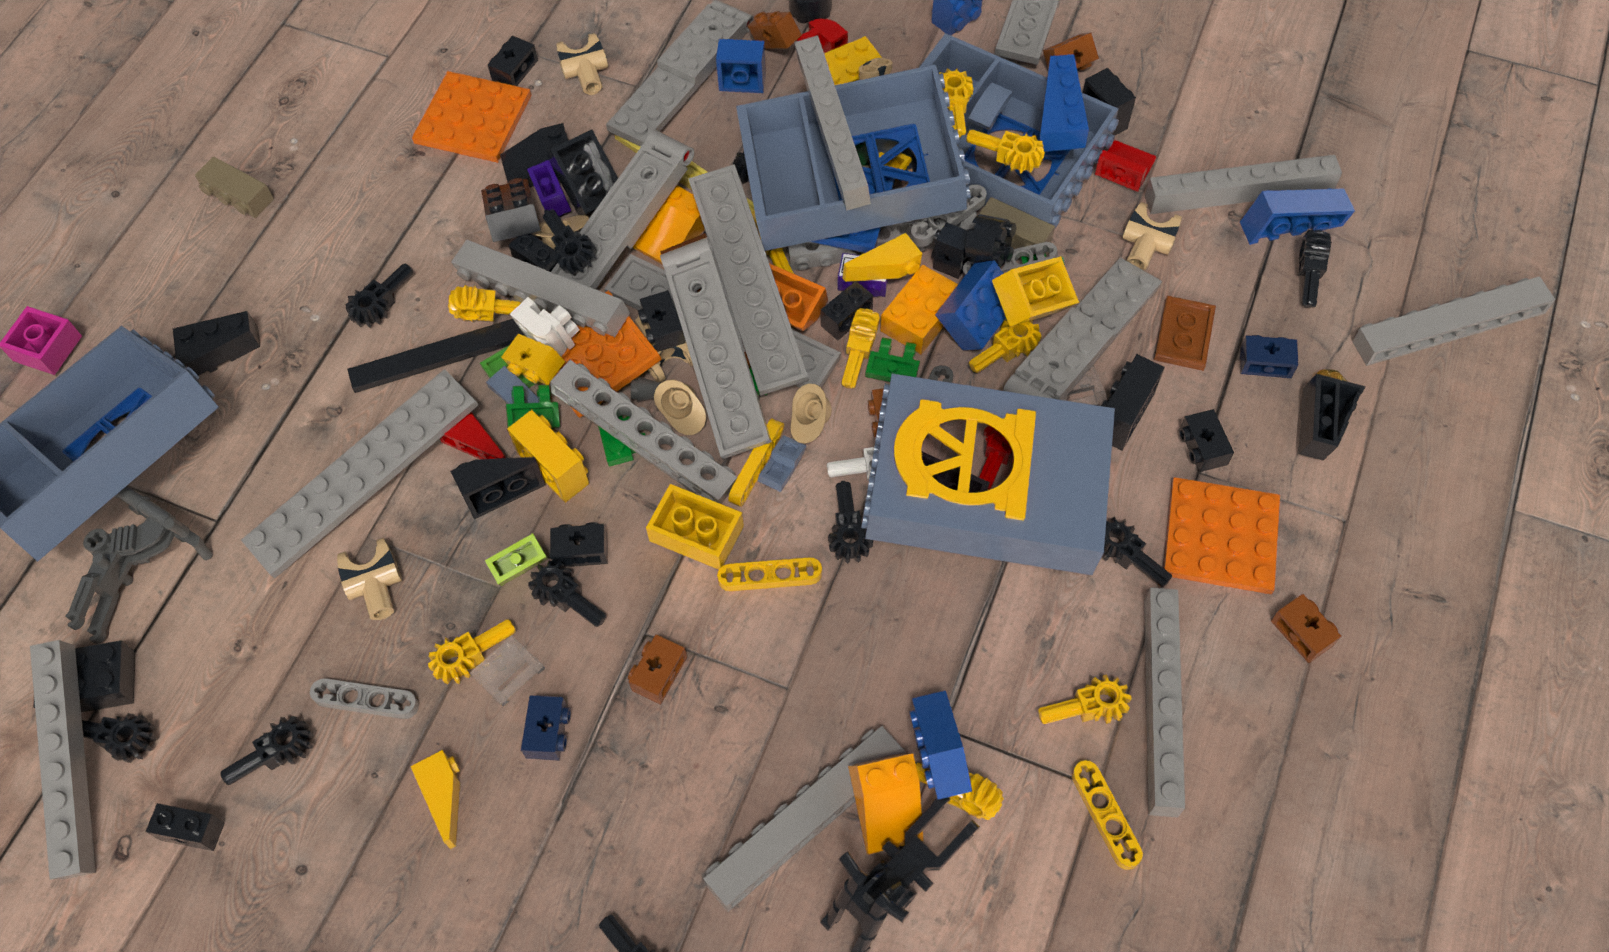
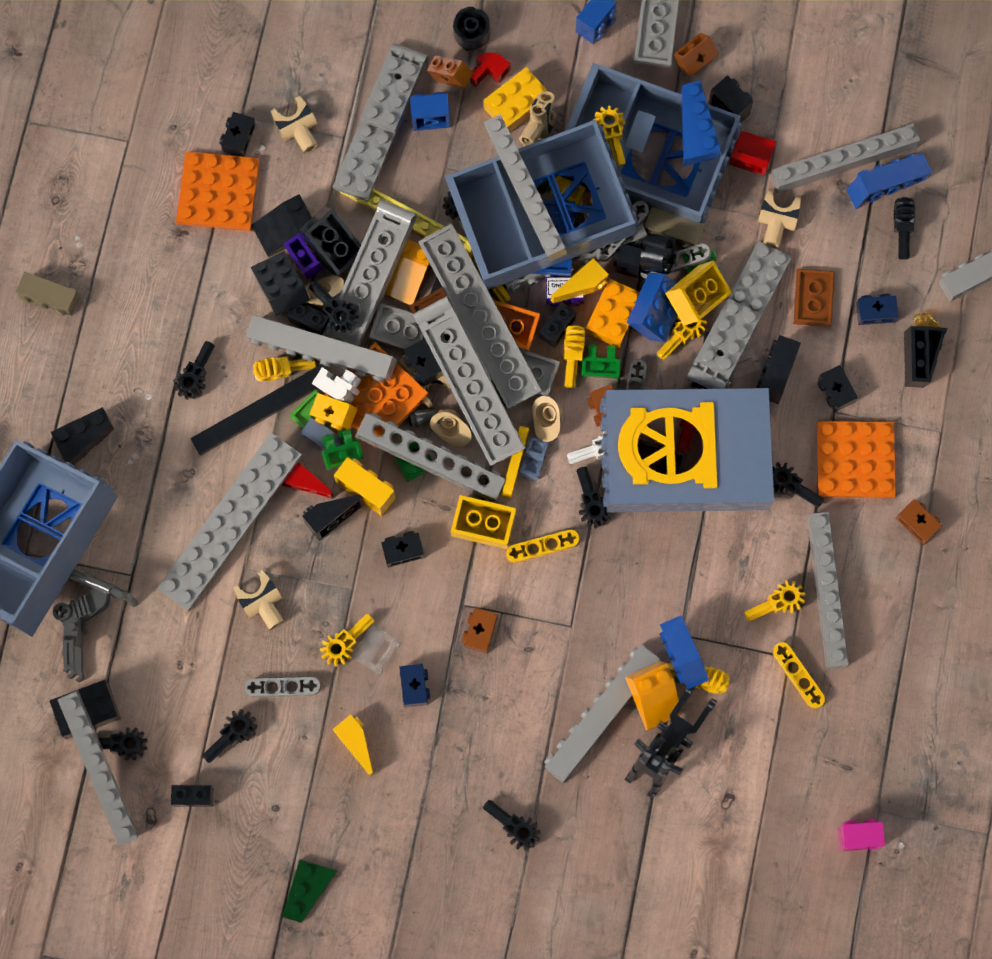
camera: 10 degrees left, 15 degrees up
(516, 559) = (362, 569): lime brick -> none
(564, 594) = (402, 587): black gear -> none
(1012, 150) = (660, 171): yellow gear -> none

